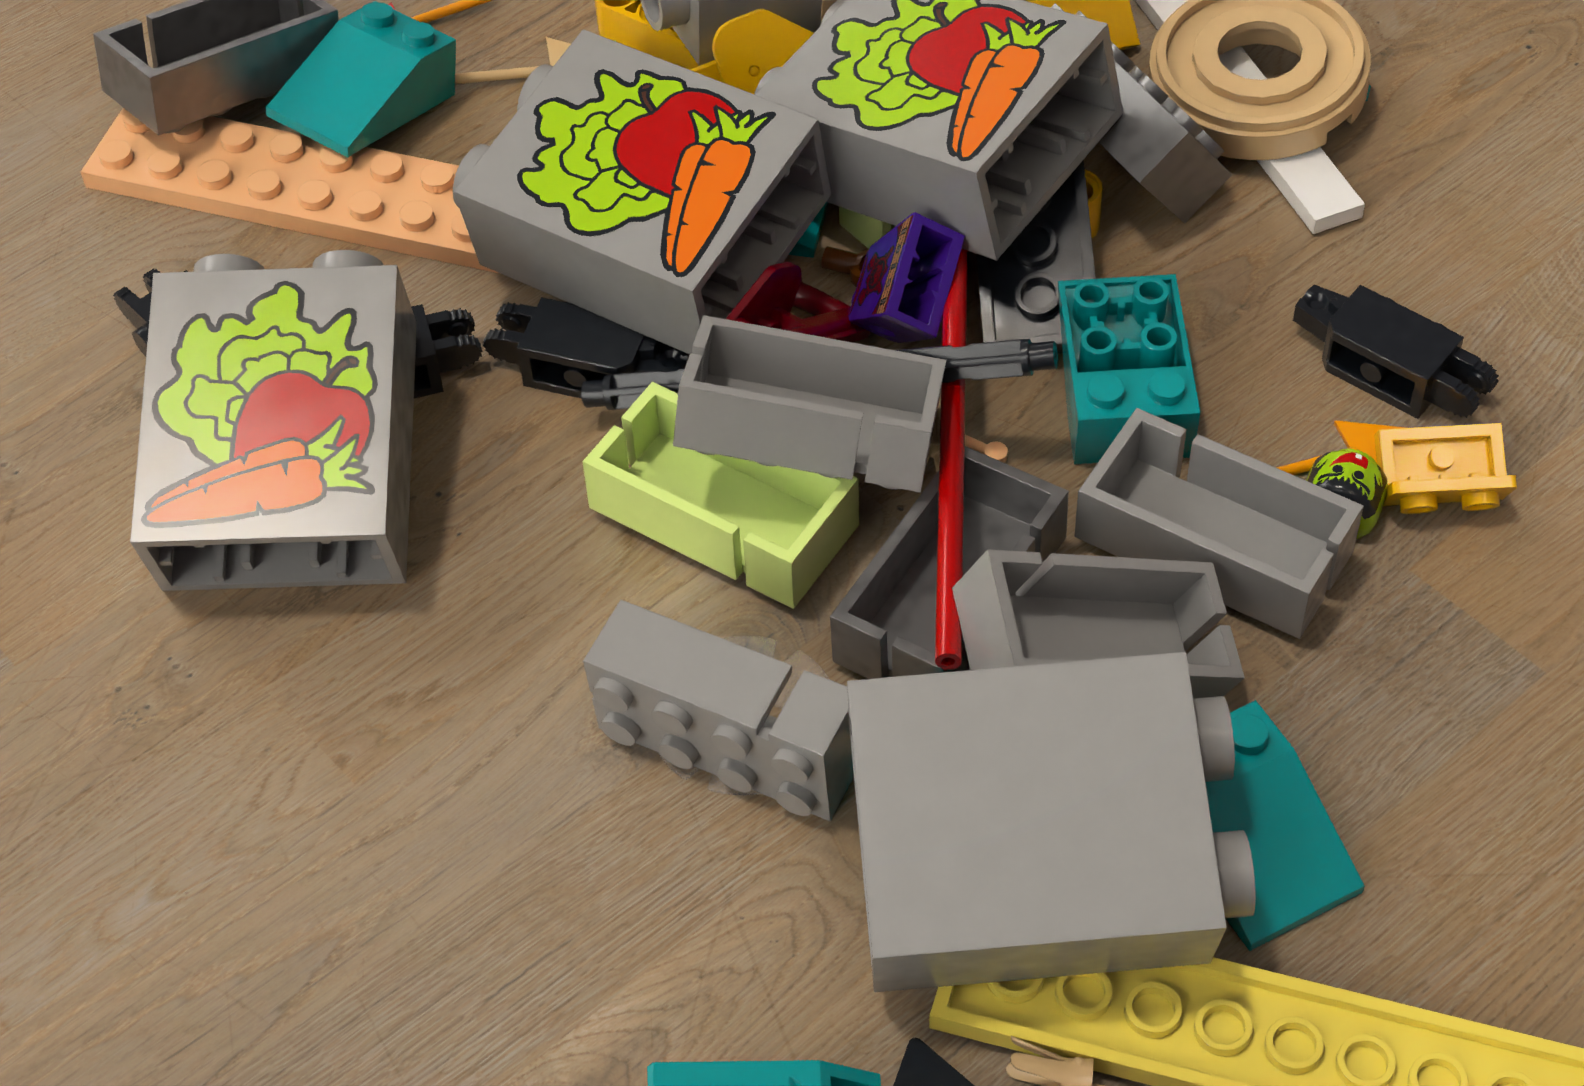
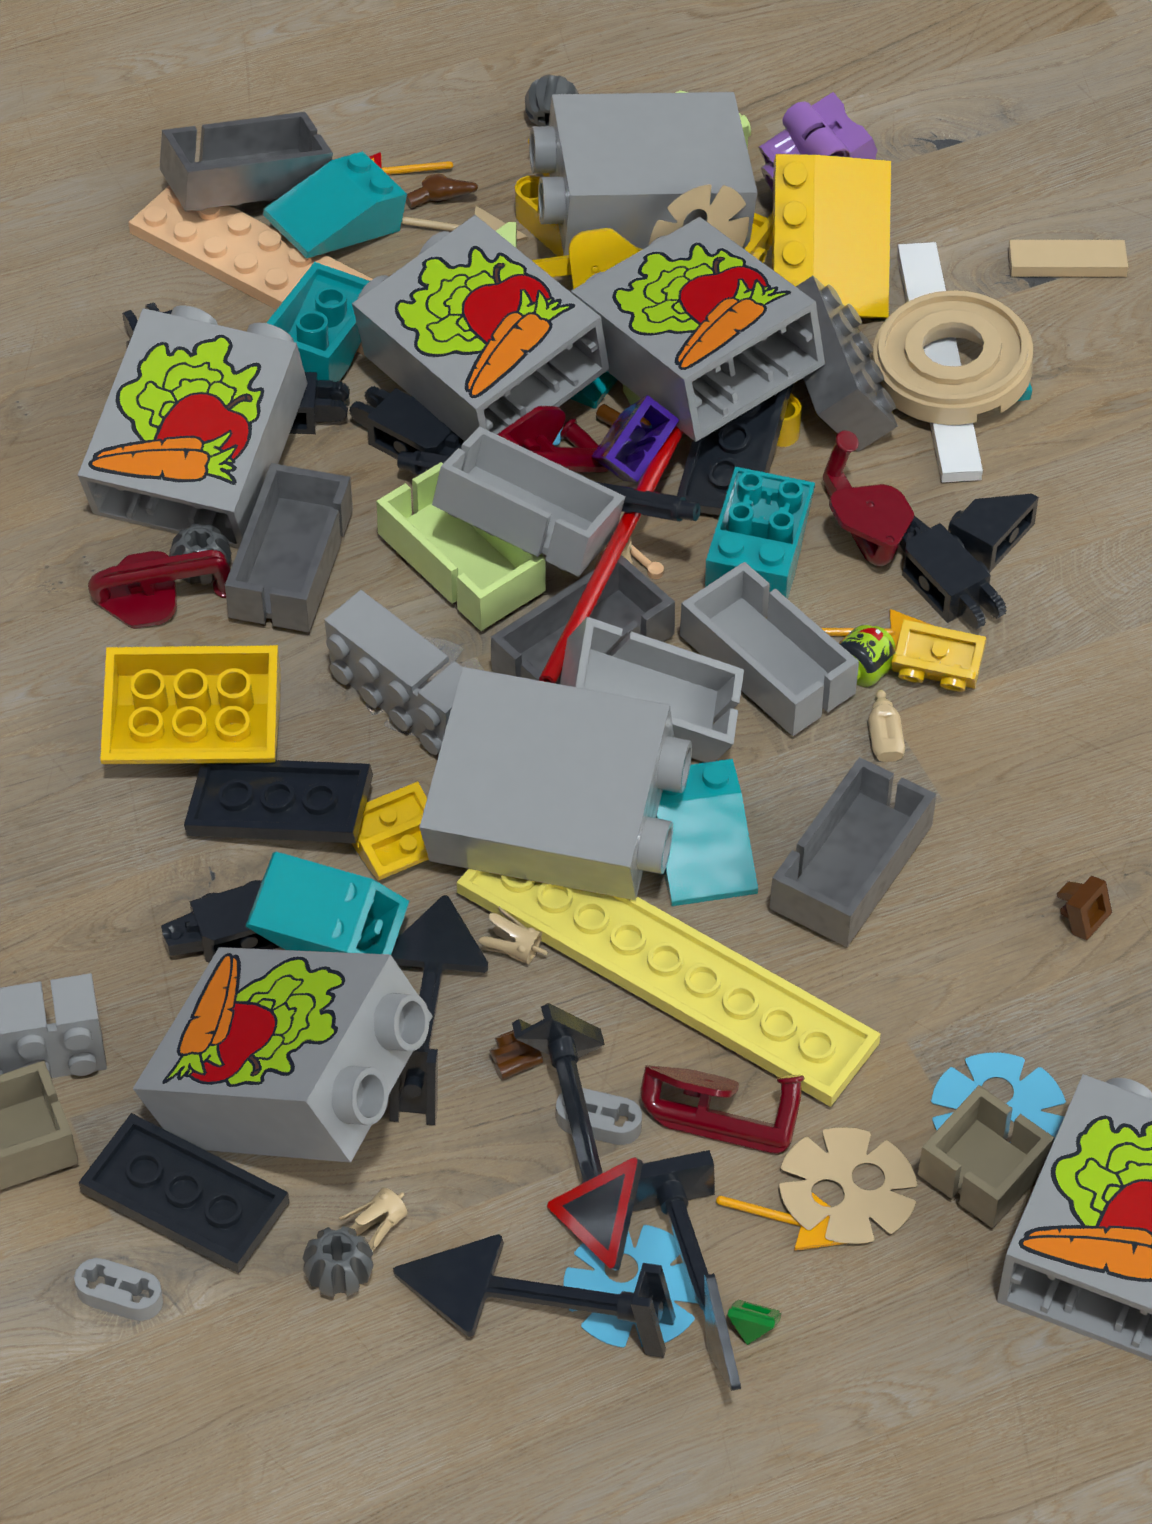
camera: 15 degrees right, 0 degrees up
(276, 678) = (144, 587): none -> dark red piece
(346, 608) = (198, 539): none -> dark grey piece
(408, 220) = (322, 320): none -> teal slope
(417, 851) = (191, 704): none -> yellow slope
(475, 564) = (289, 547): none -> flat silver piece
(490, 27) = (439, 188): none -> reddish brown animal
(605, 962) = (280, 801): none -> black plate
(796, 957) = (391, 832): none -> yellow slope
(1252, 298) = (872, 513): none -> dark red piece
(1420, 267) = (994, 525): none -> black slope
(1421, 592) = (886, 730): none -> tan piece
(1487, 795) = (852, 852): none -> flat silver piece

